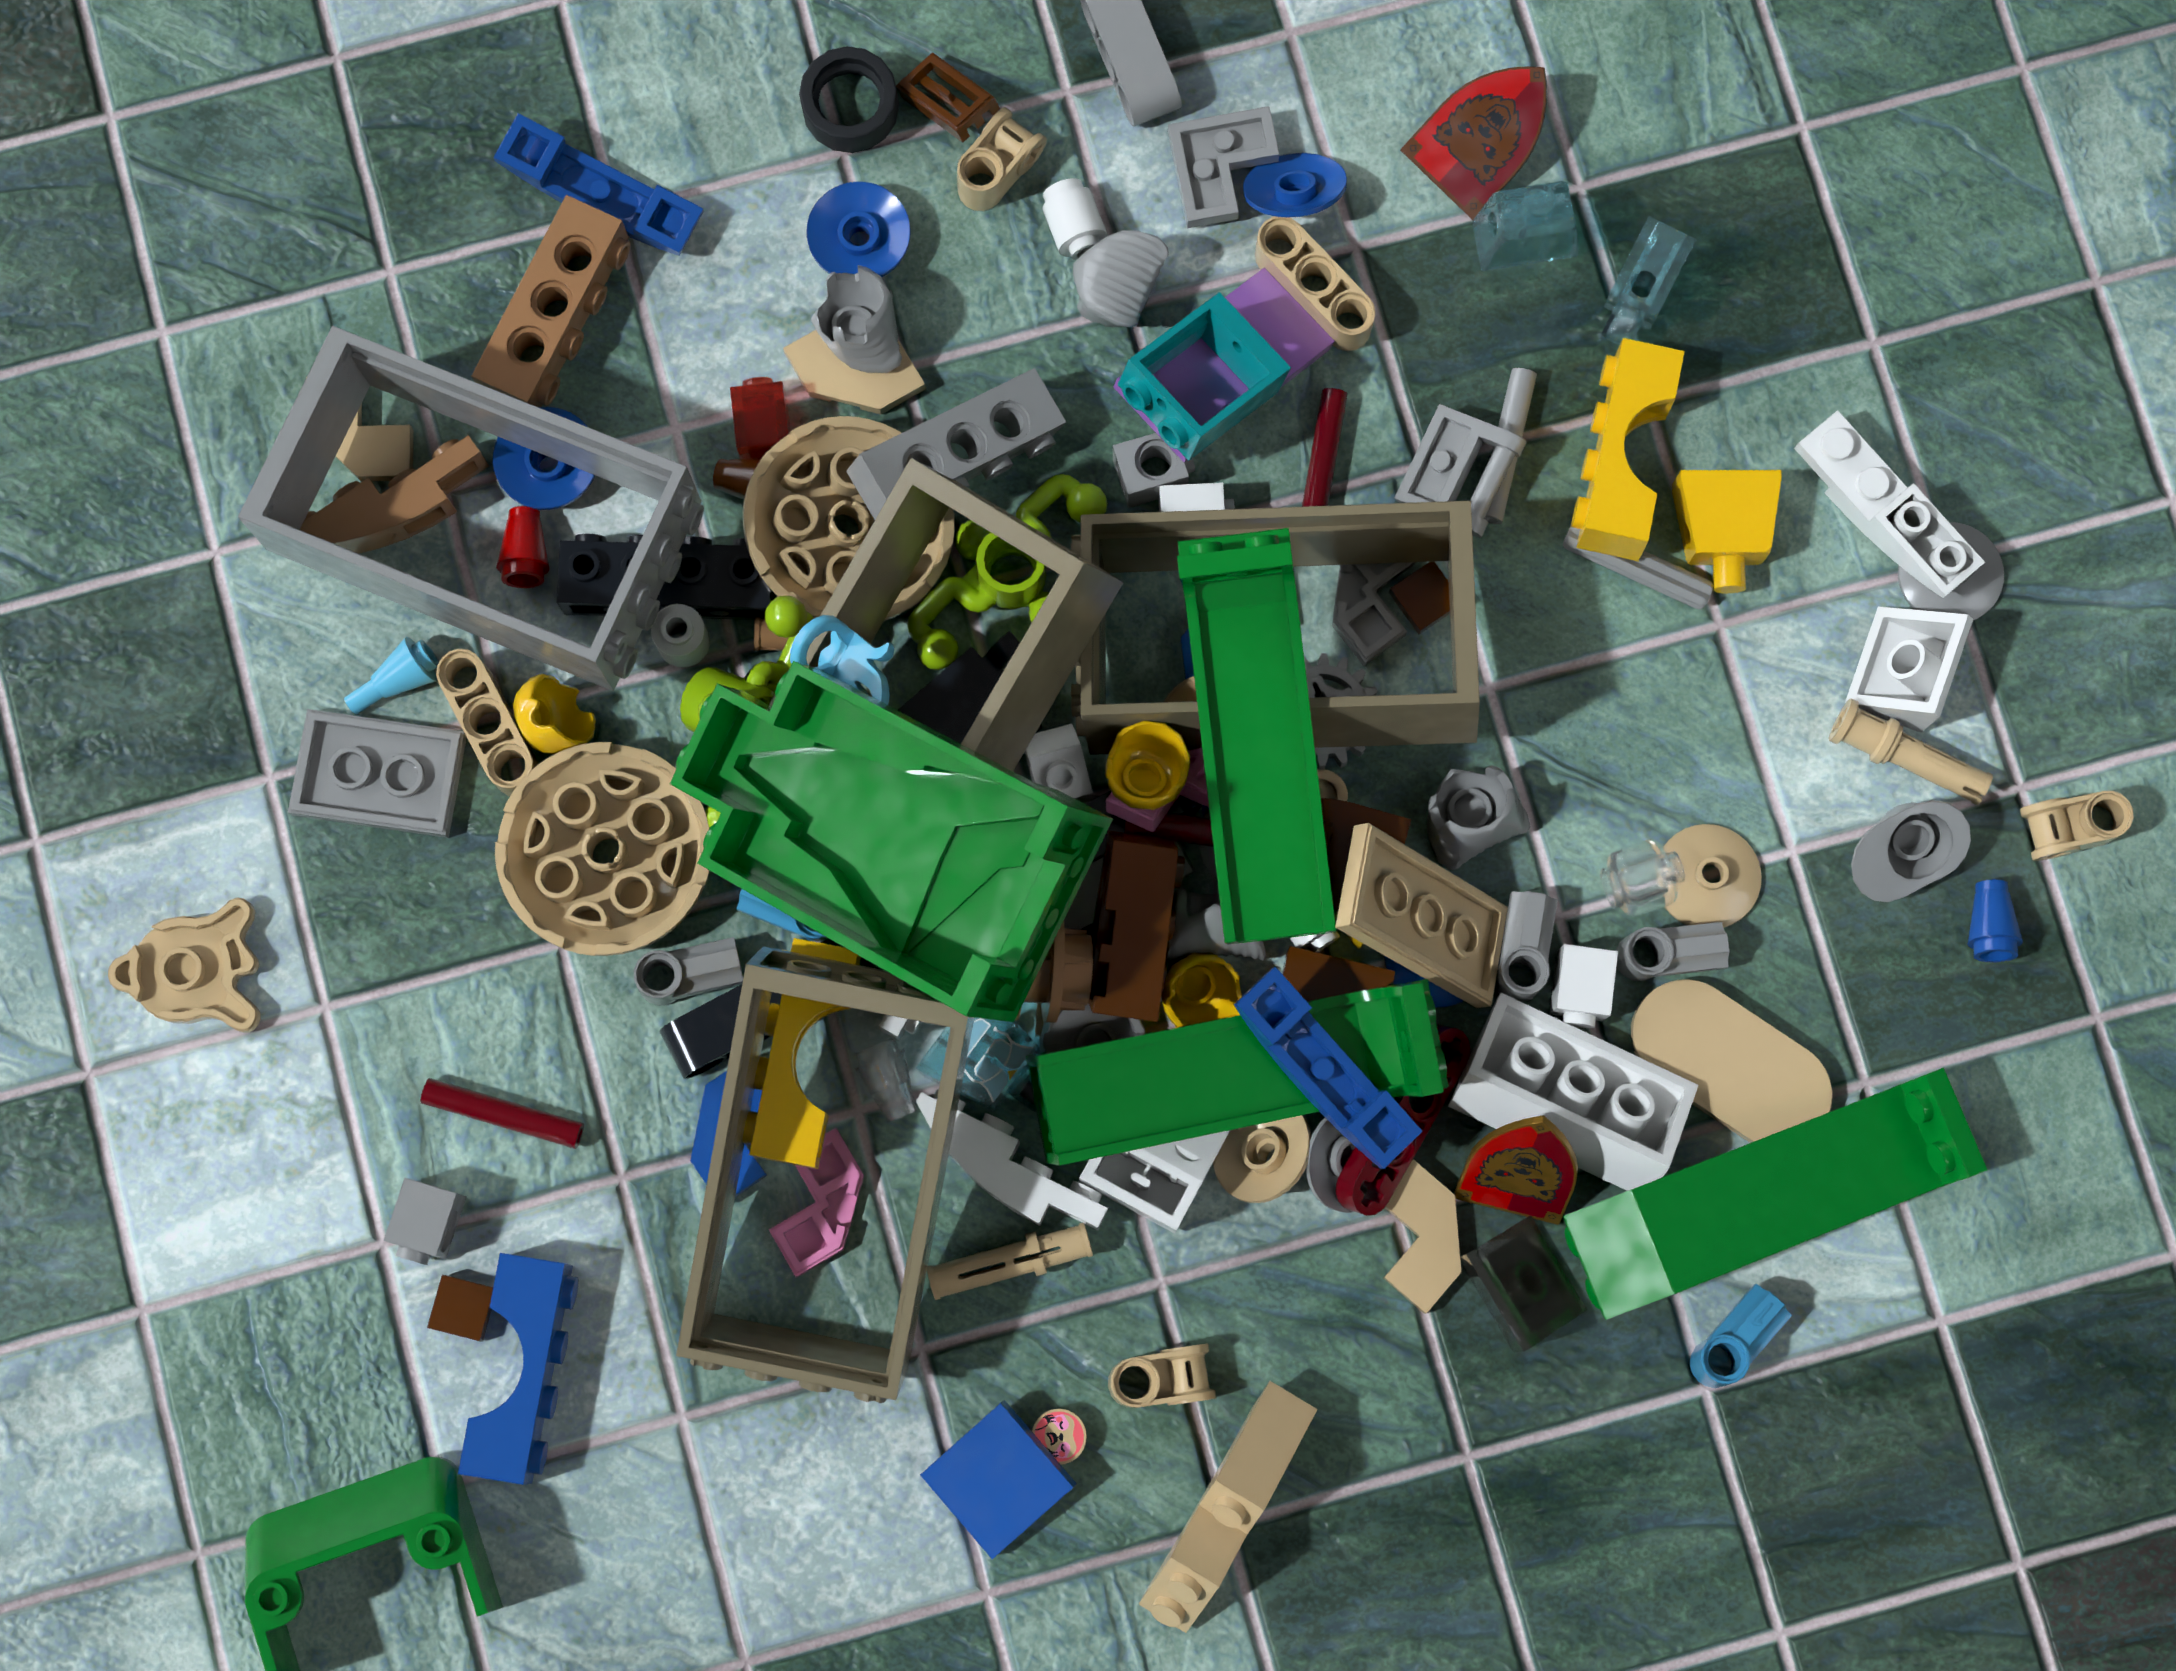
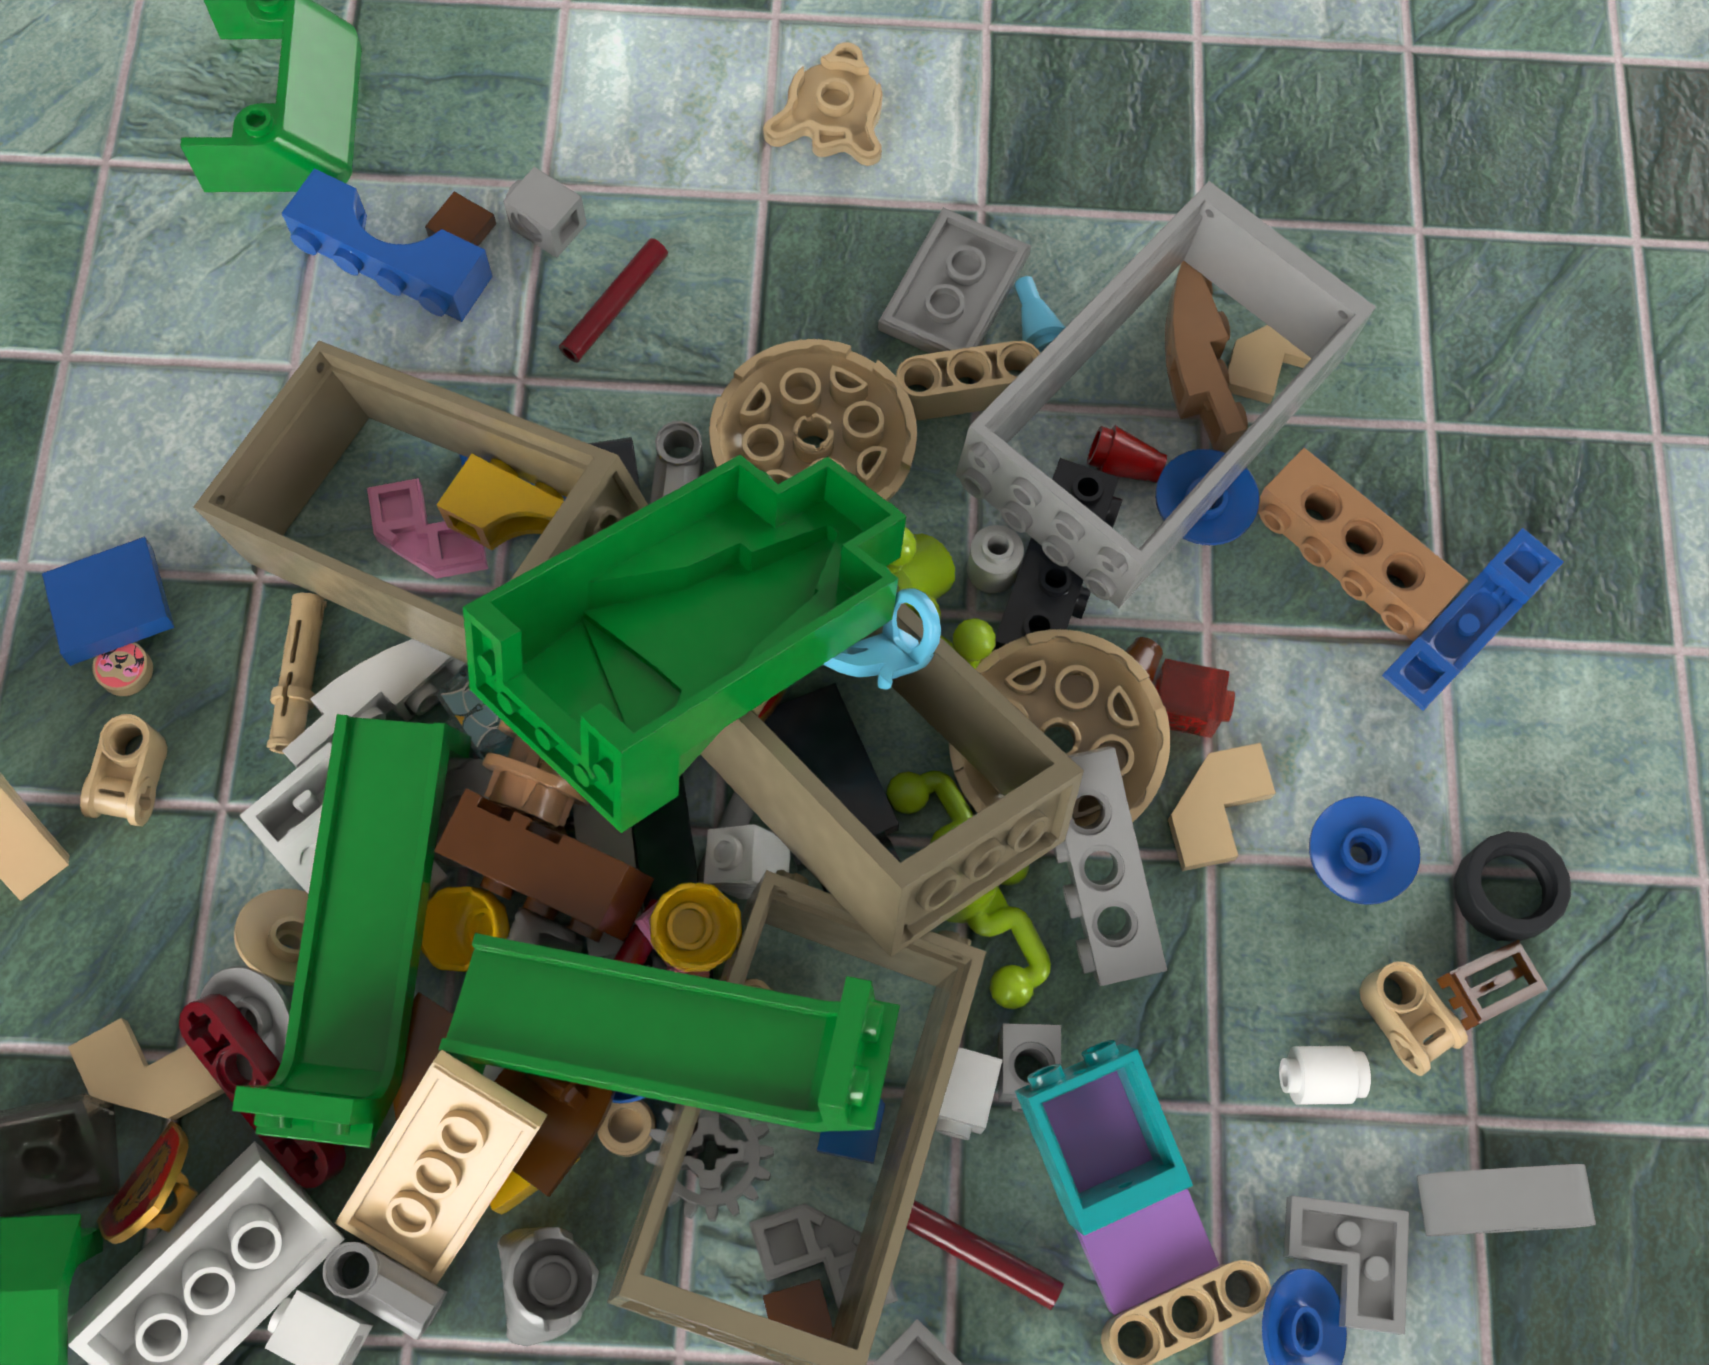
camera: 105 degrees right, 10 degrees down
(549, 715) = (945, 428): yellow hair -> none
(859, 321) = (1266, 818): light grey hair -> none
(1118, 277) = (1244, 1094): light grey hair -> none
(1324, 1071) = (320, 1010): blue slope -> none

